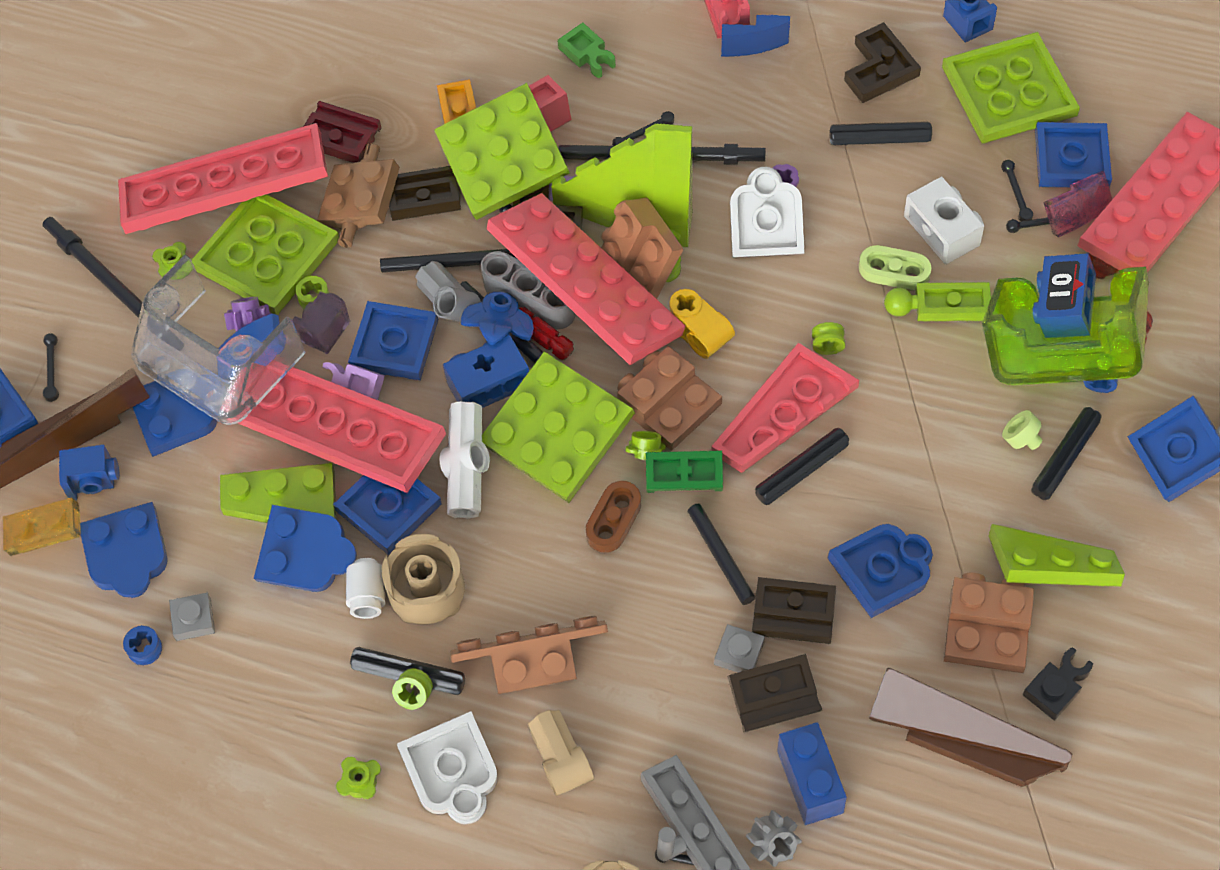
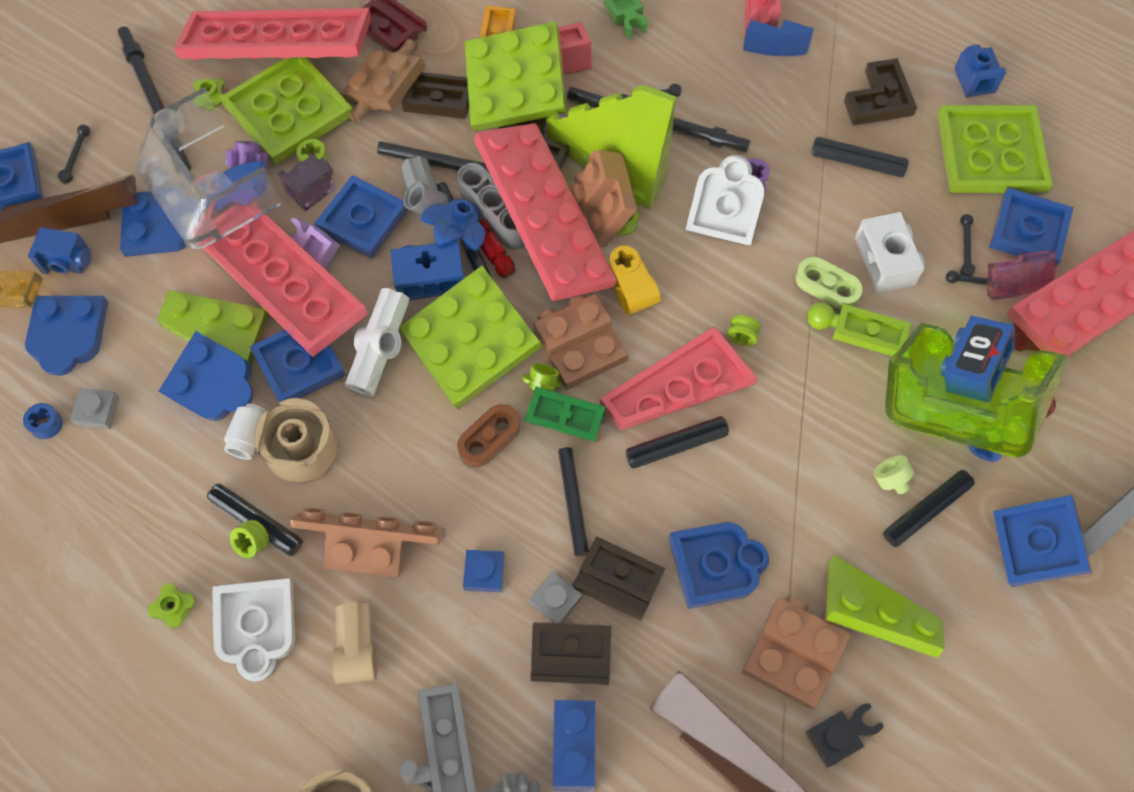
camera: 15 degrees right, 5 degrees up
(659, 646) = (484, 571): none -> blue plate

